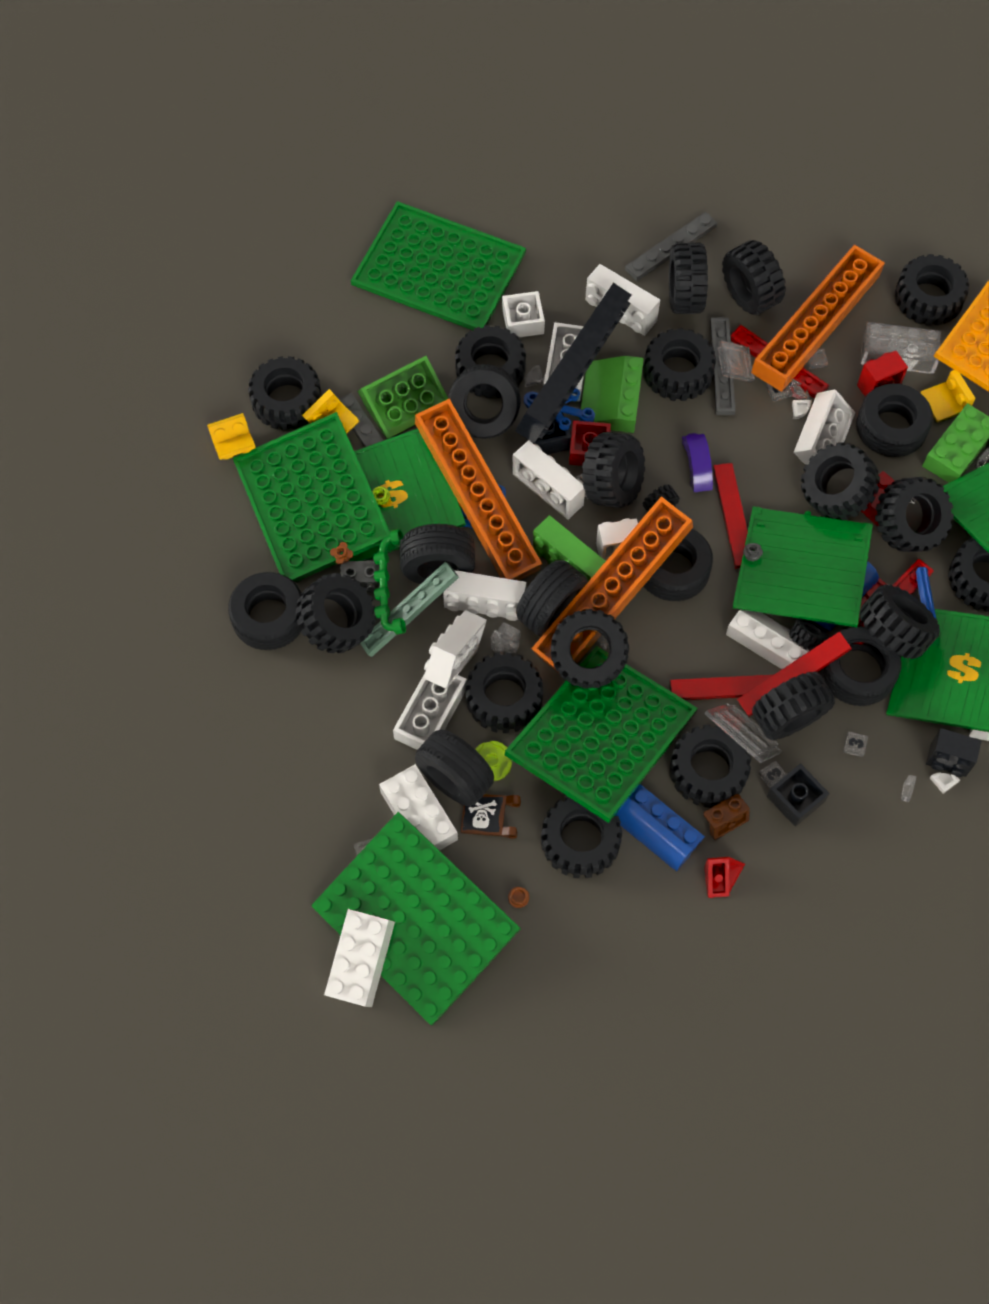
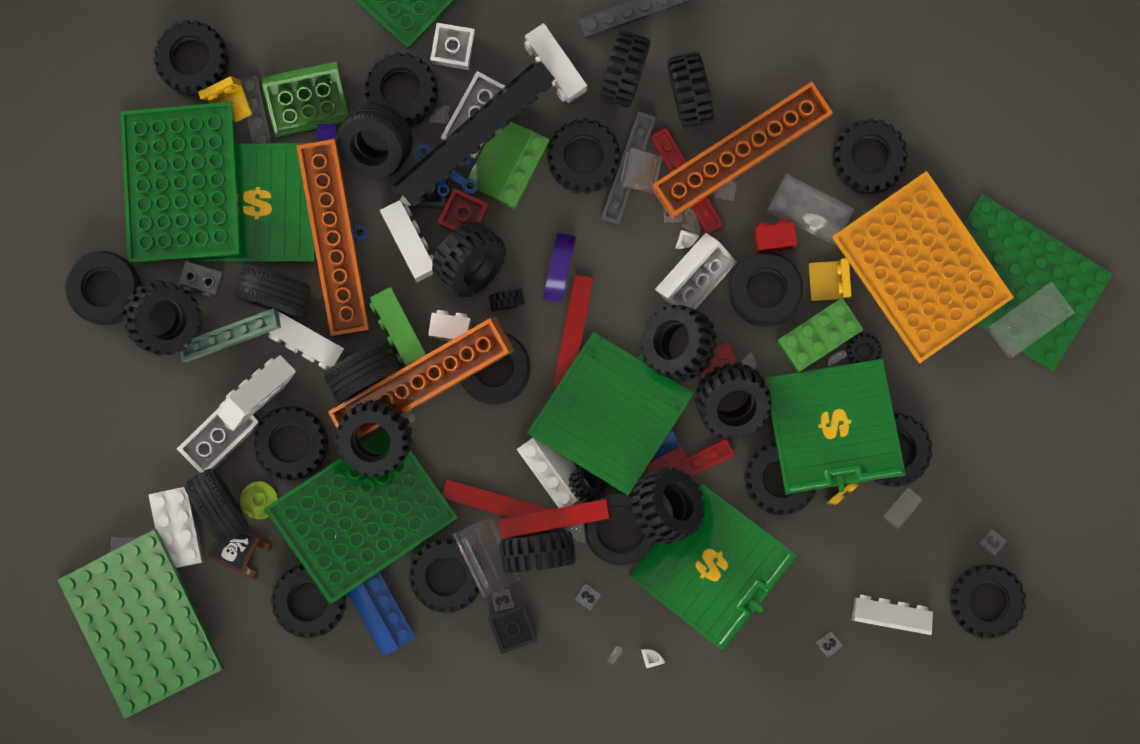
camera: 20 degrees right, 20 degrees up
(231, 436) = (125, 91): yellow bracket -> none
(345, 557) = (192, 259): dark orange plate -> none
(359, 958) = (81, 644): white brick -> none
(381, 491) = (245, 197): lime plate -> none
(382, 575) = (211, 311): green bar -> none
(505, 639) = (317, 391): clear brick -> none
(518, 897) = (237, 633): dark orange plate -> none
(721, 875) = (418, 677): red slope -> none
(727, 816) = (442, 625): reddish brown bracket -> none
(752, 555) = (569, 388): dark grey plate -> none
(925, 589) = (712, 482): blue axle -> none
(953, 753) = (665, 639): black brick -> none

